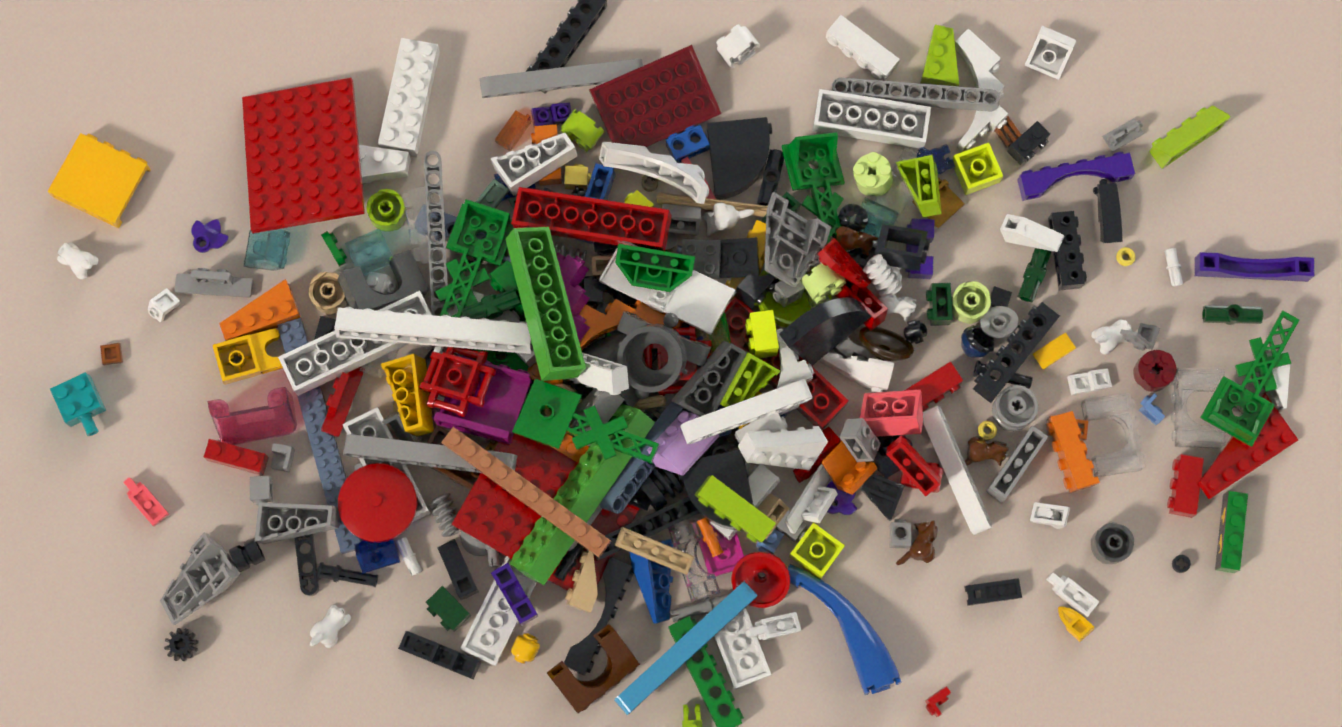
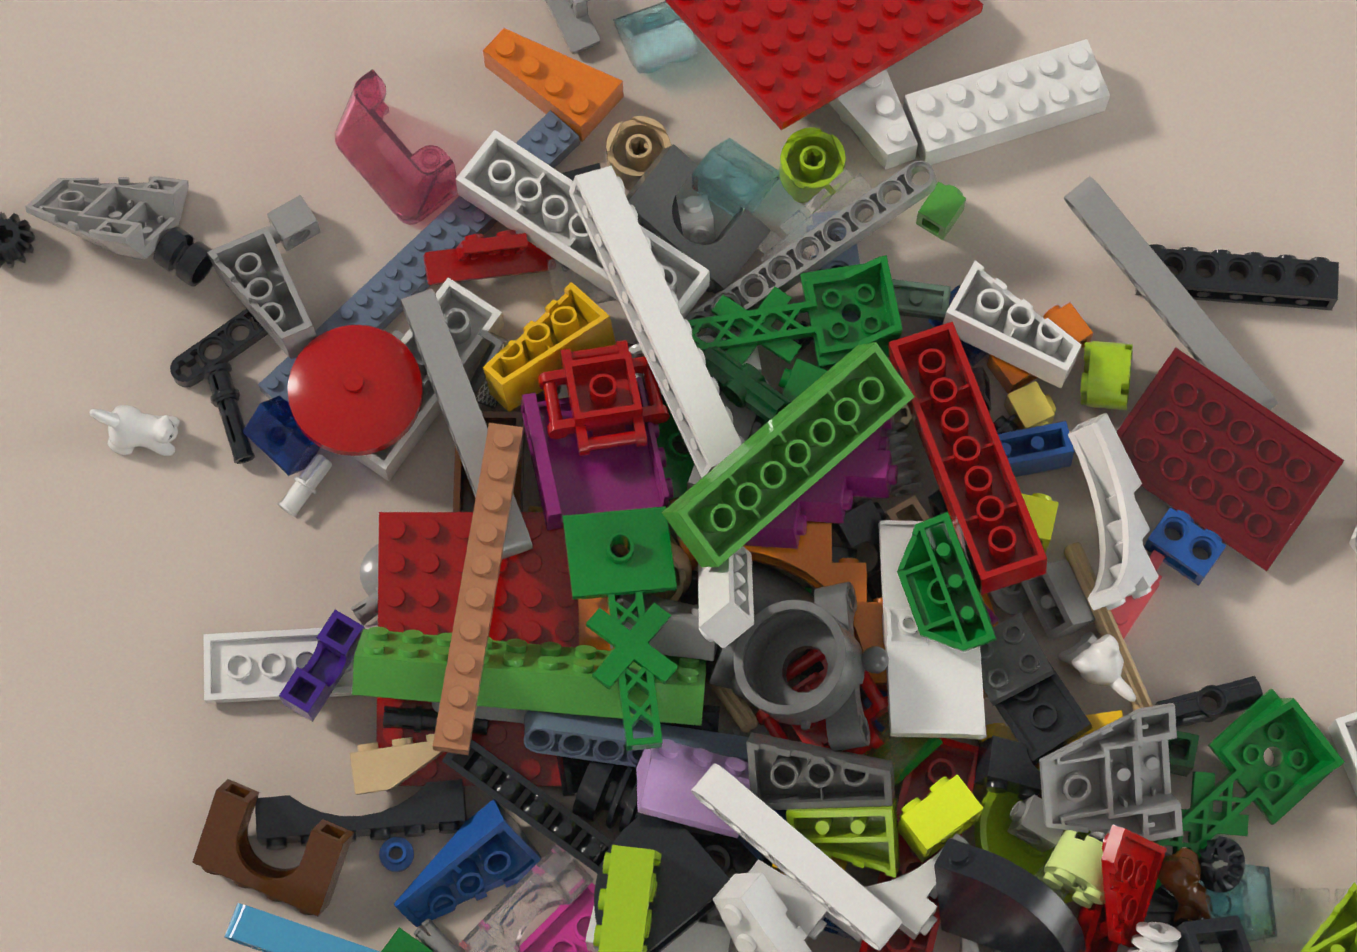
camera: 65 degrees right, 5 degrees down
(145, 502) = (190, 78): coral hinge -> none
(236, 457) = (321, 162): red brick -> none
(253, 354) = (483, 103): yellow brick -> none
(282, 457) = (358, 228): light grey panel -> none
(330, 241) = (706, 133): green plate -> none
(439, 655) = (180, 611): black slope -> none
(444, 514) = (398, 498): light grey piece -> none
(448, 609) = (253, 583): dark green brick -> none
(450, 163) = (941, 210): none -> bright green brick
(457, 569) = (320, 566): black slope -> none
(513, 130) = (1047, 279): clear orange panel -> none
(525, 648) = (255, 730): yellow head -> none
(551, 115) = (1105, 320): dark purple slope -> none
(628, 616) = (400, 864): none -> blue plate
(649, 188) = (1090, 533): dark tan bush -> none
(654, 550) = (502, 838): tan tile -> none
(710, 537) = (573, 919): orange pin -> none
(737, 154) = (1216, 631): black brick -> none
(873, 174) = (1313, 860): yellowish green brick -> none

